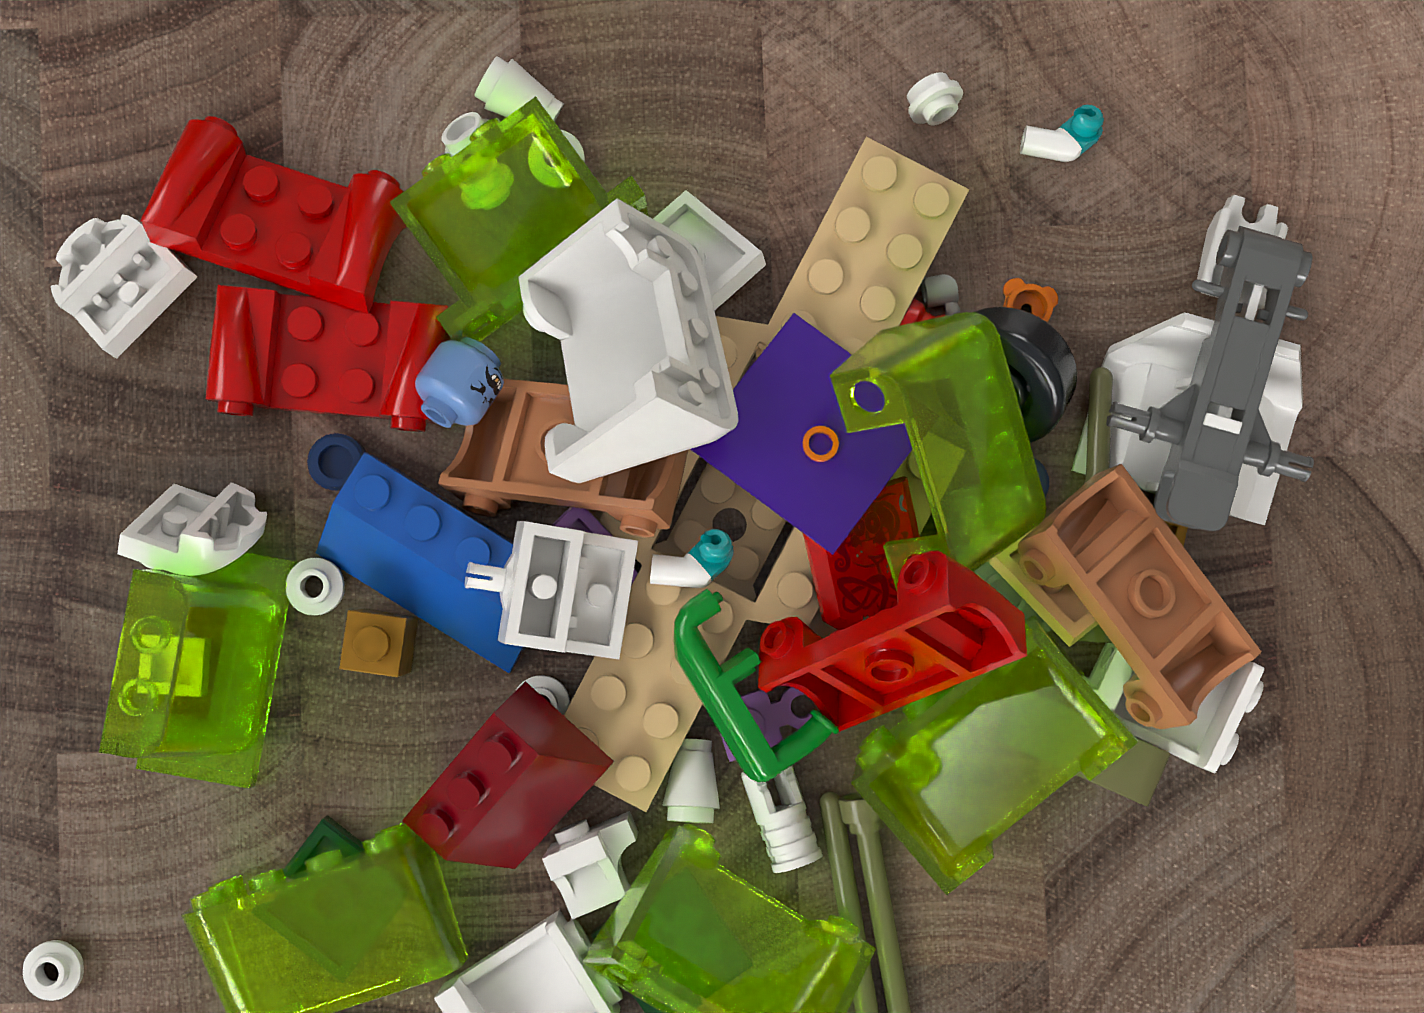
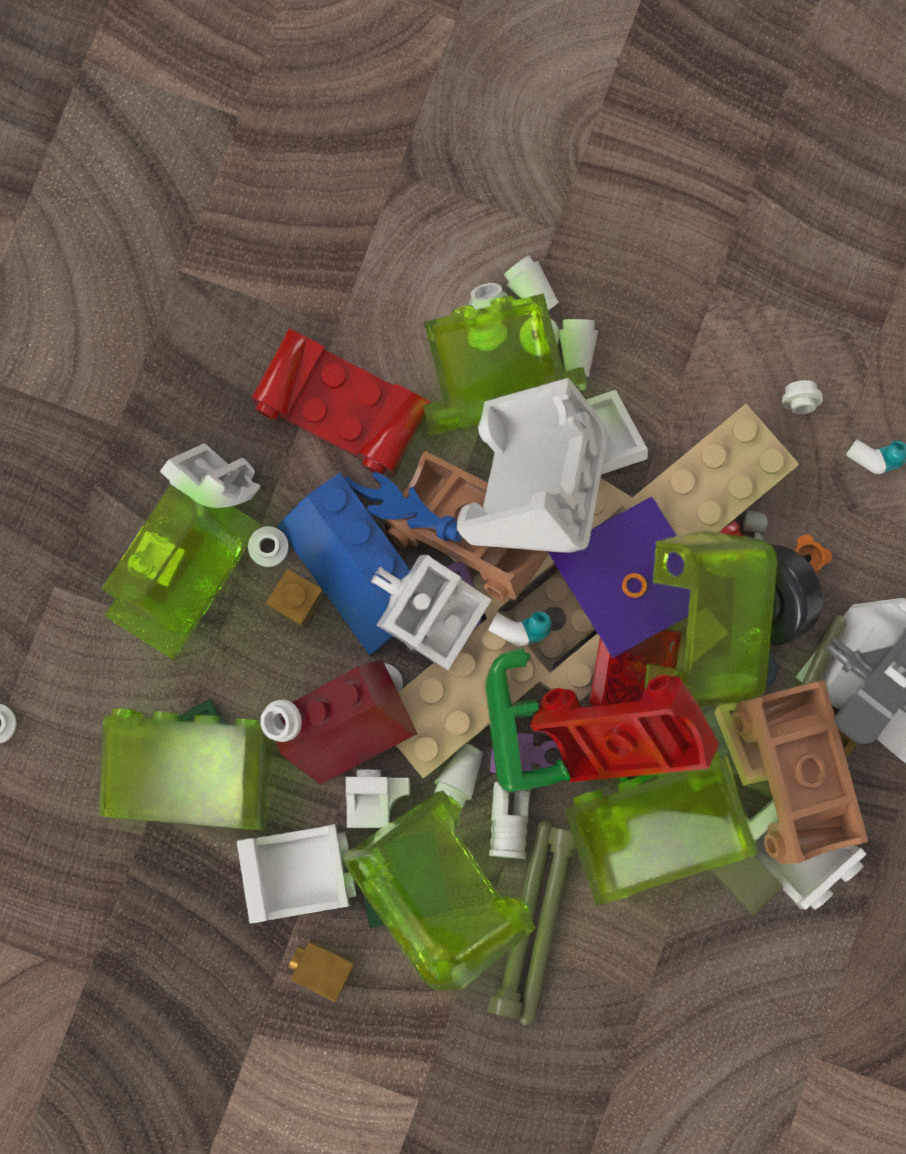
camera: 30 degrees right, 5 degrees down
(117, 280) = (225, 298): white slope -> none
(273, 218) = (343, 301): red piece -> none
(333, 460) = (314, 471): dark blue tile -> none
(422, 824) = (272, 723): none -> white plate
(459, 382) = (419, 453): medium blue head -> none
(462, 467) = (398, 507): none -> blue piece
(611, 147) = (578, 343): none -> cone

